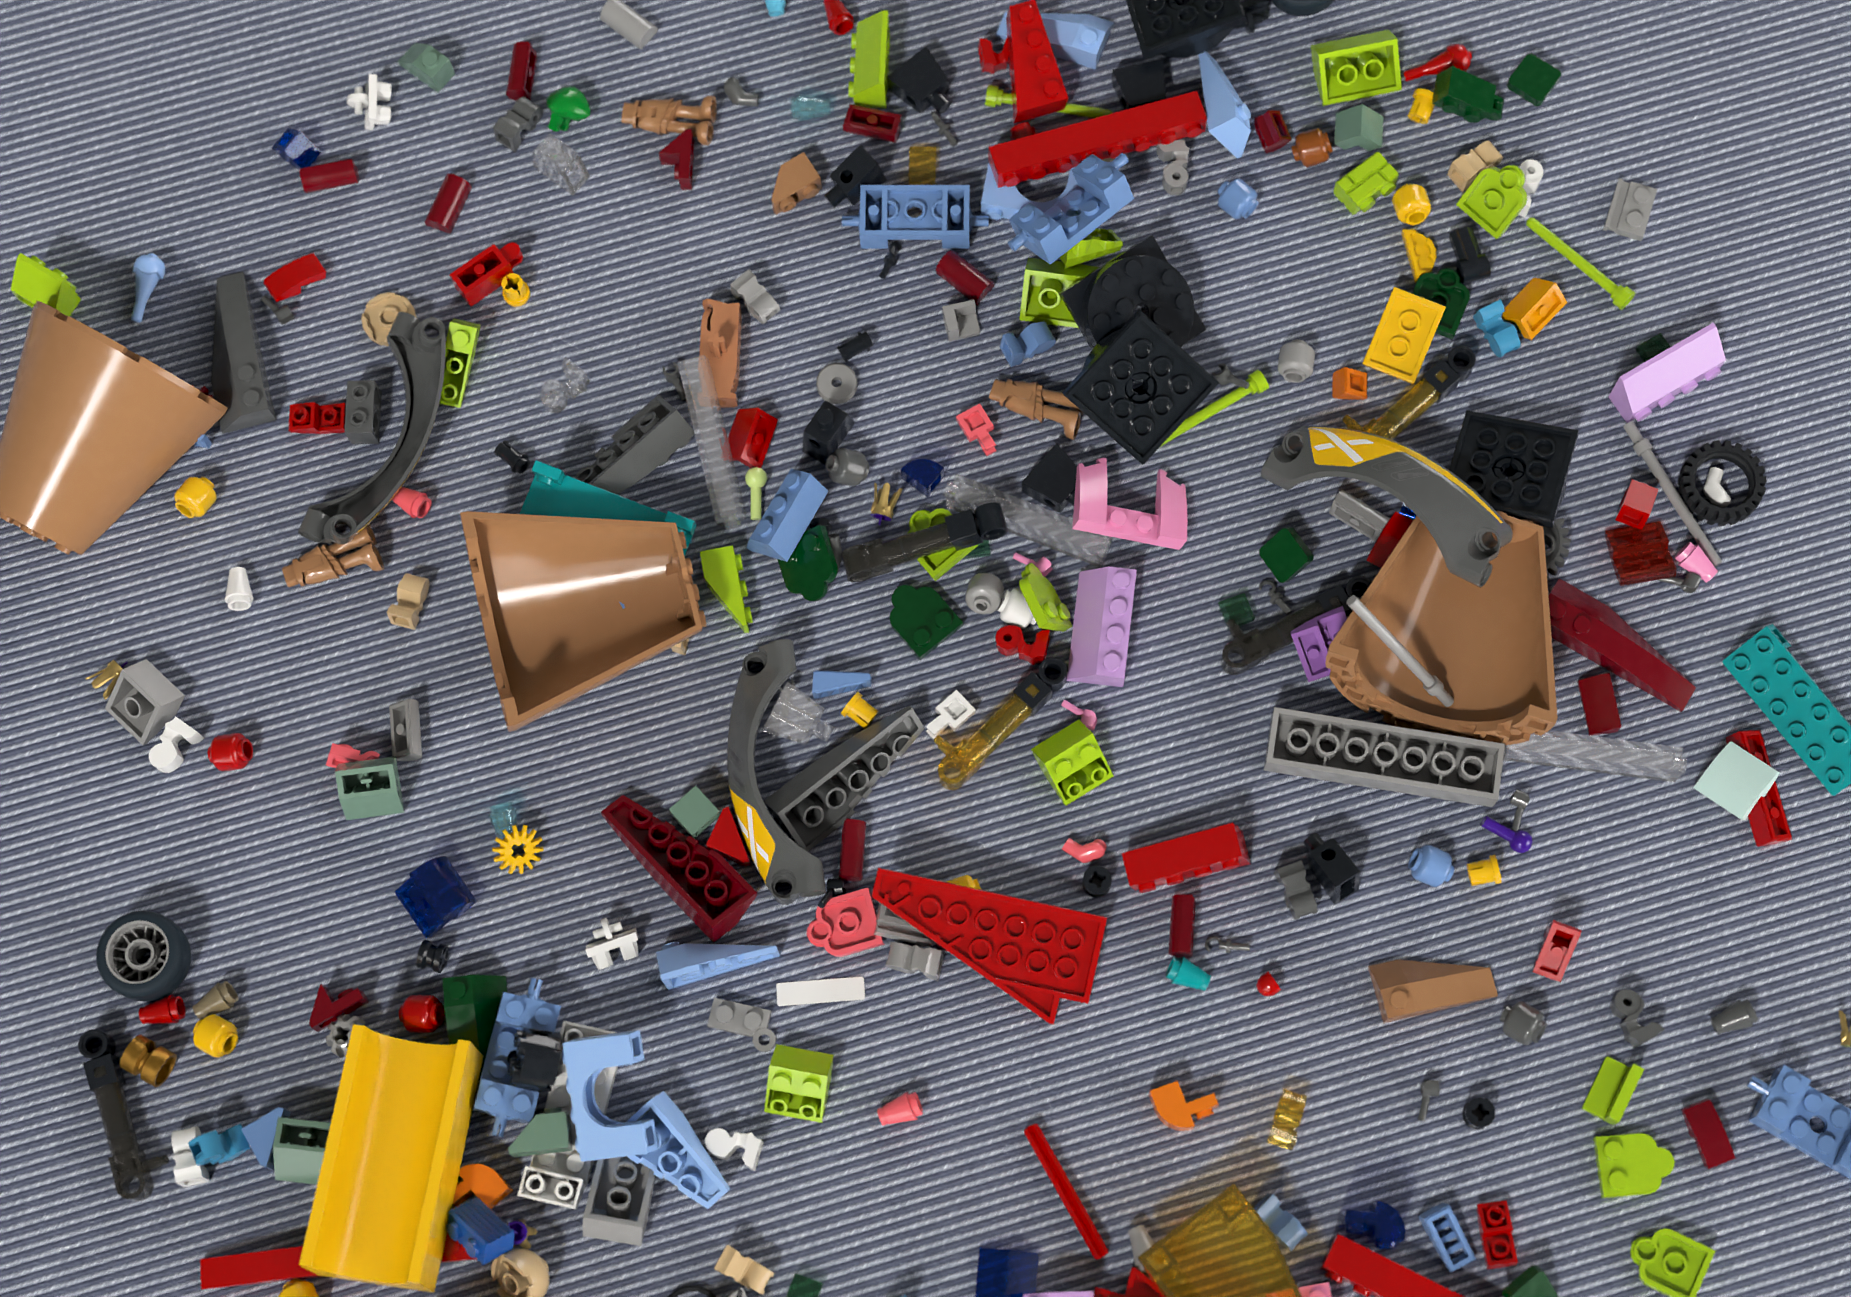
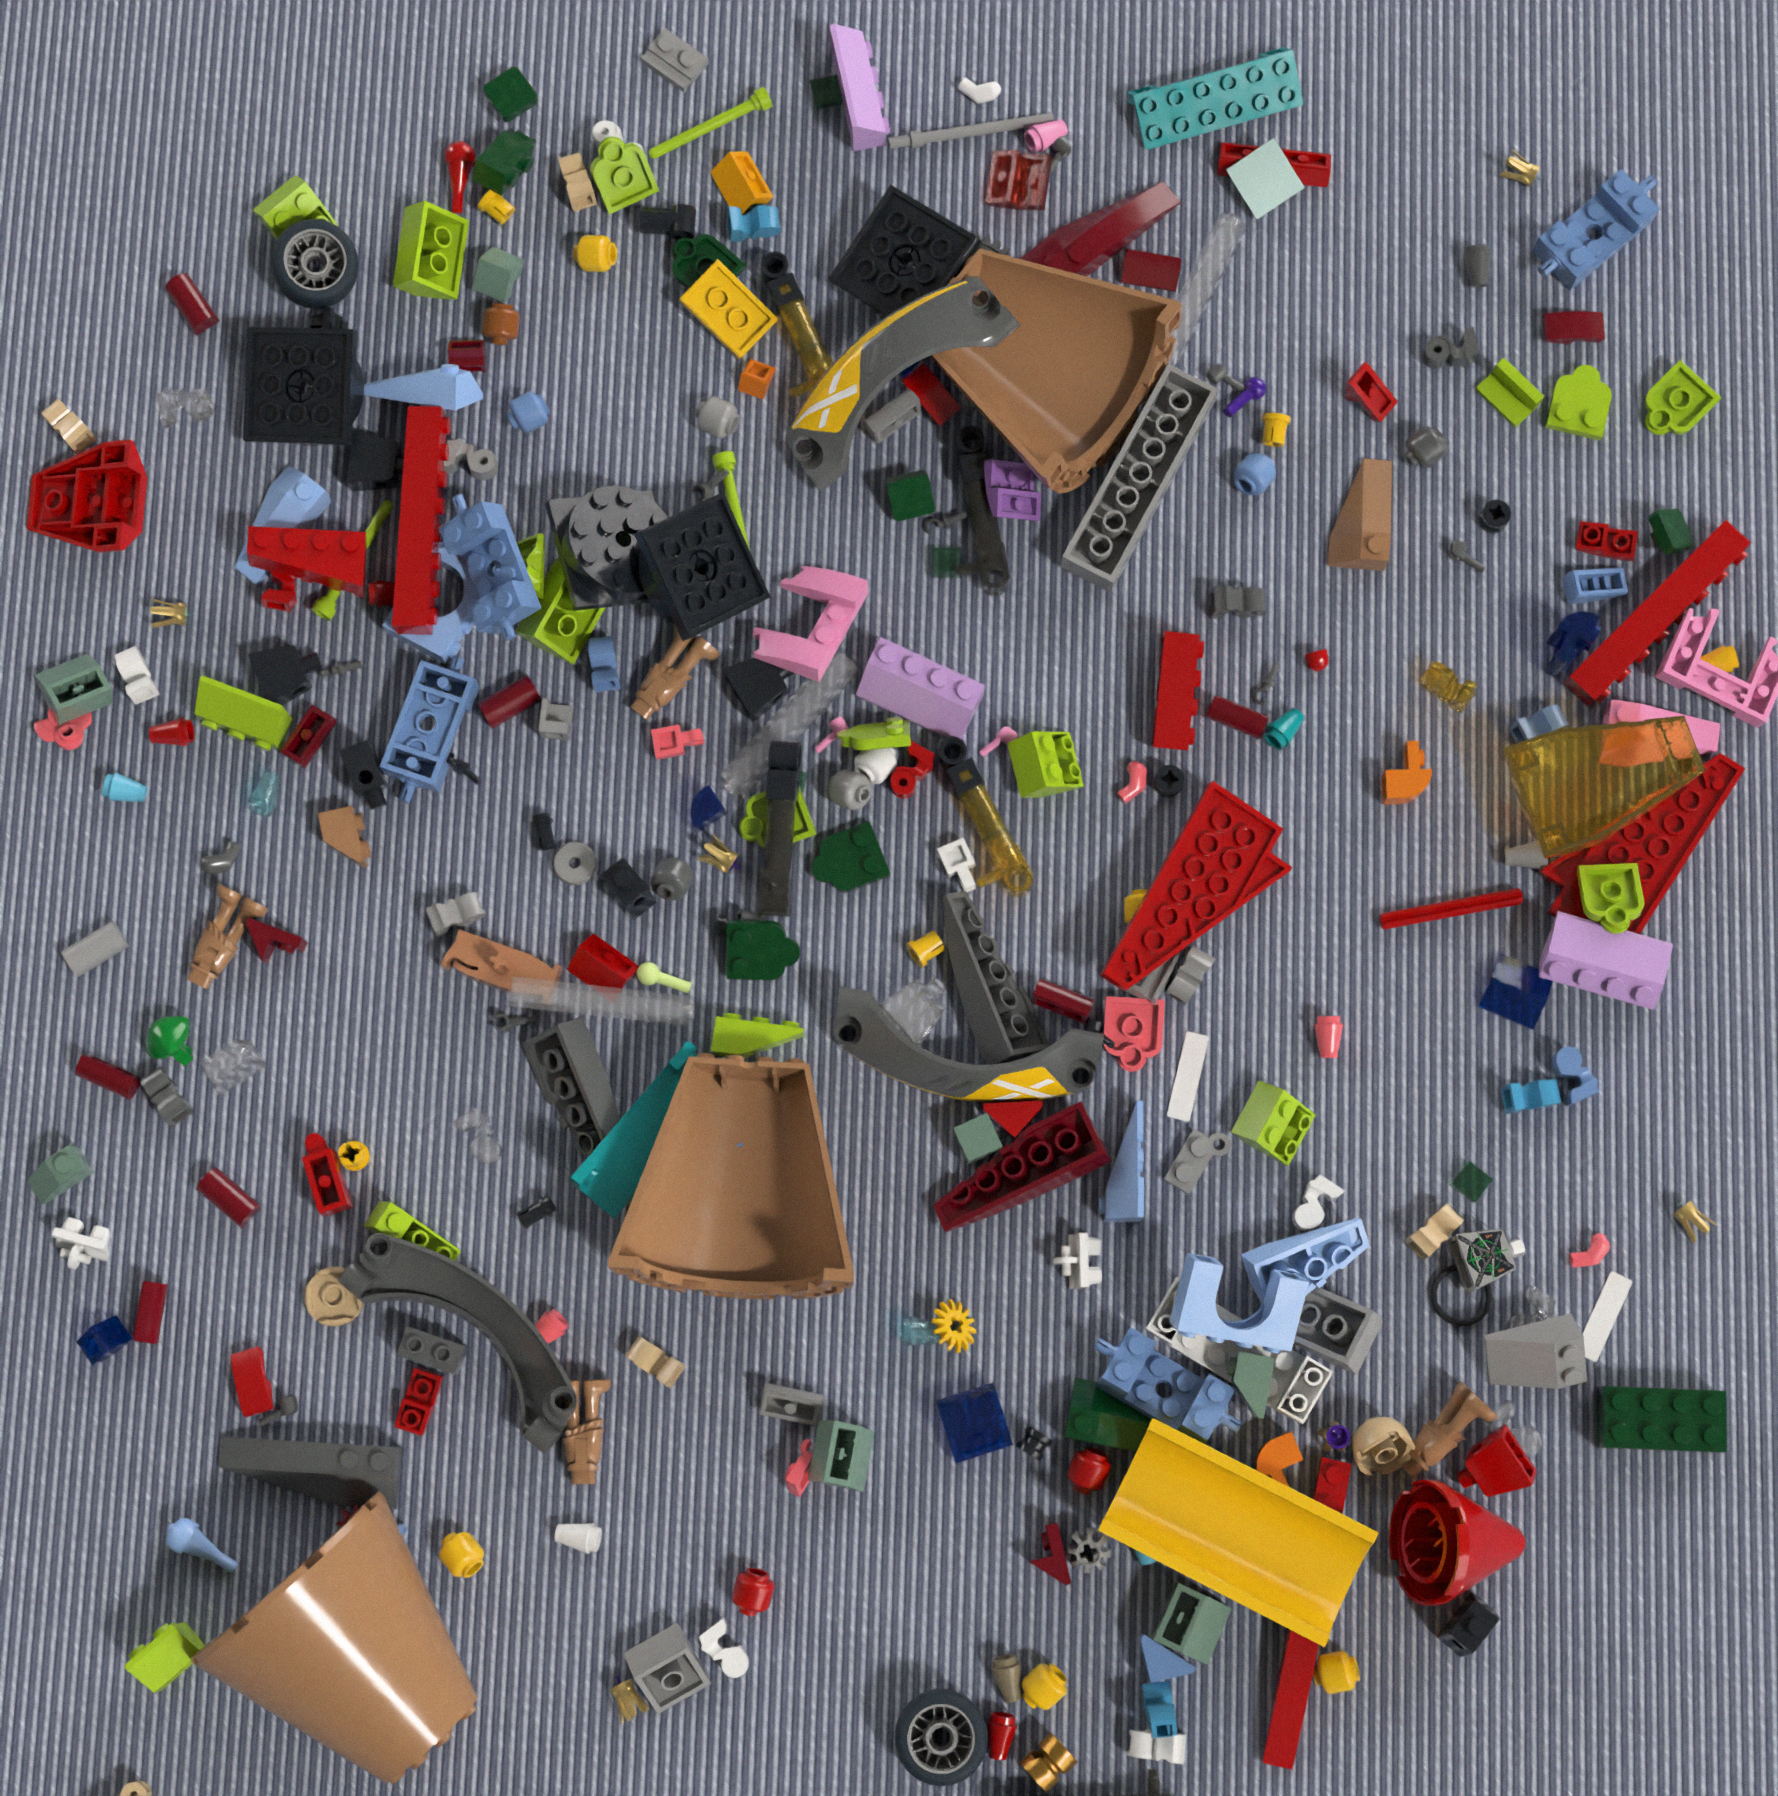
camera: 75 degrees left, 5 degrees up
(479, 1231) = (1328, 1469): blue brick -> none
(535, 1059) = (1178, 1365): black brick -> none
(787, 516) = (703, 954): medium blue slope -> none
(835, 682) = (887, 969): medium blue slope -> none
(922, 166) = (376, 705): clear yellow tile -> none
(1332, 868) = (1238, 557): black torso -> none
(1366, 183) = (557, 287): lime brick -> none
(1420, 252) = (646, 265): yellow tile -> none
(1430, 683) = (1086, 408): light grey bar -> none
(1636, 504) = (973, 164): brick -> none
(1730, 453) = (984, 53): black tyre -> none

